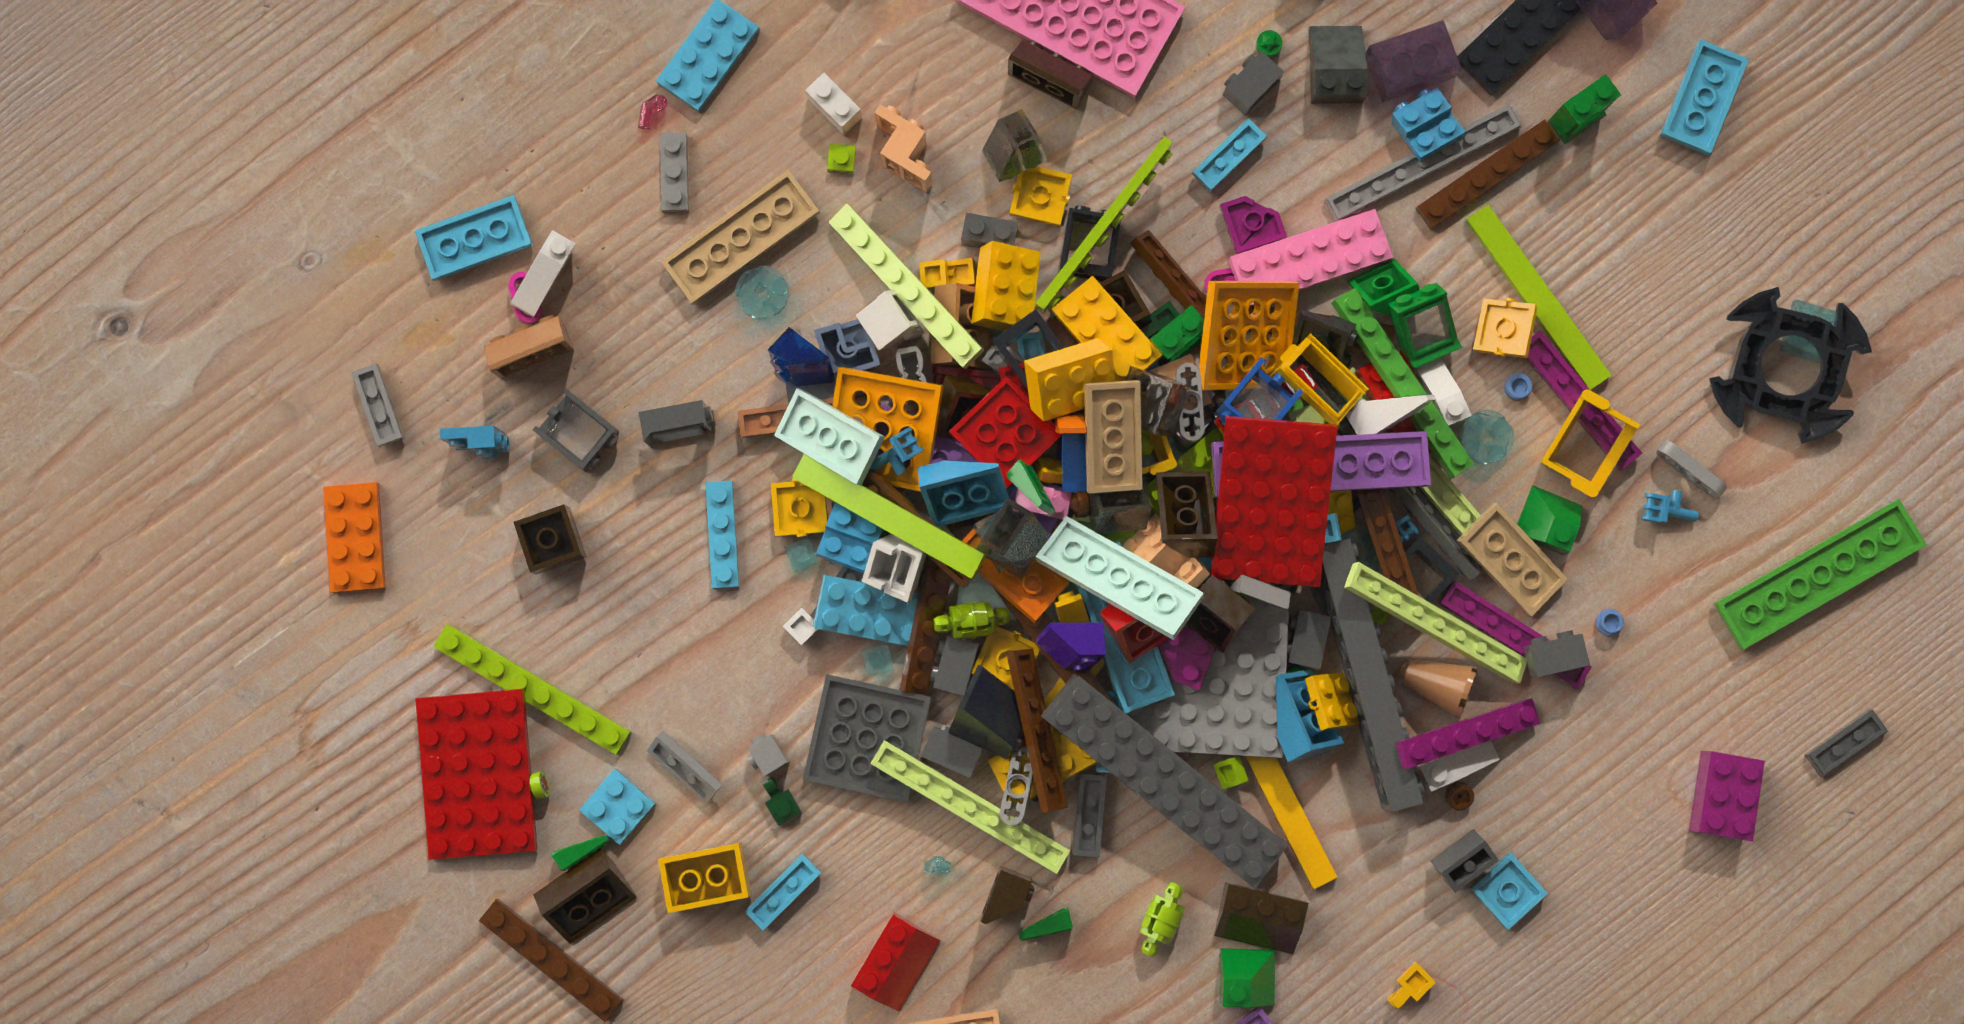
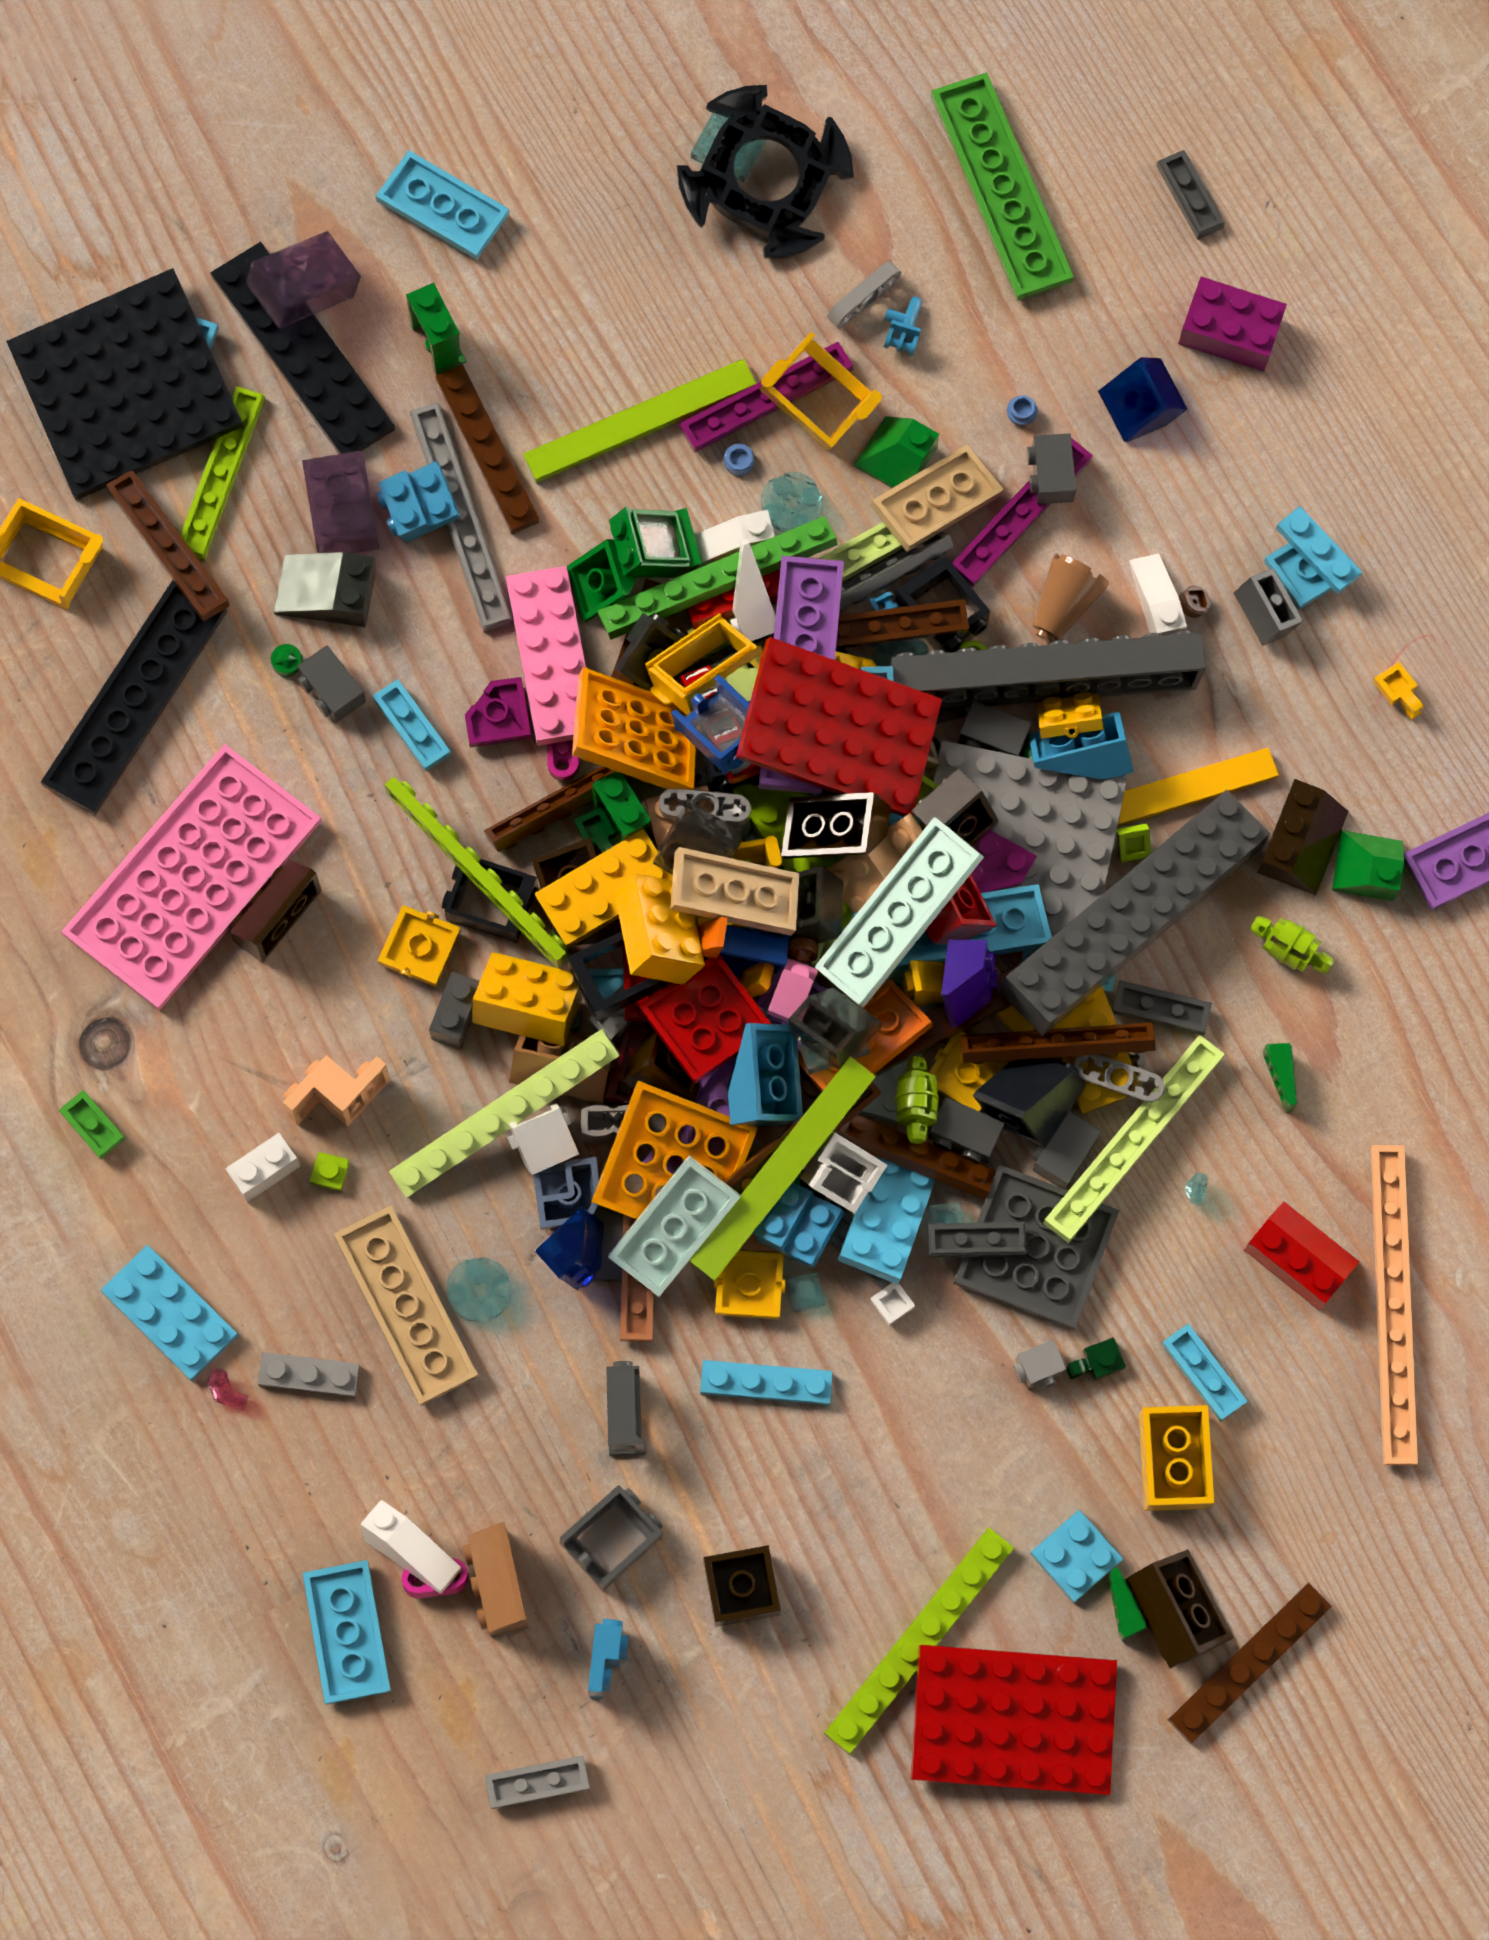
camera: 85 degrees left, 10 degrees down
(354, 537) = (697, 1836): orange plate -> none
(539, 785) = (1038, 1645): lime tile -> none
(684, 767) = (1041, 1466): light grey plate -> none
(862, 687) = (976, 1239): none -> dark grey tile
(903, 446) = (704, 1141): dark azure arm -> none
(947, 272) = (494, 1067): yellow slope -> none
(1007, 894) = (1244, 1108): dark brown slope -> none
(1013, 147) = (358, 963): clear smoke slope -> none
(1027, 481) = (769, 998): slope -> none
(1261, 592) = (938, 762): light grey slope -> none
(1435, 623) = (999, 586): yellowish green plate -> none
(1467, 733) = (1127, 576): magenta plate -> none
(1505, 328) = (671, 459): yellow plate -> none
(1525, 898) = (1318, 550): none -> medium azure plate
(1640, 725) = (1142, 398): none -> clear blue slope

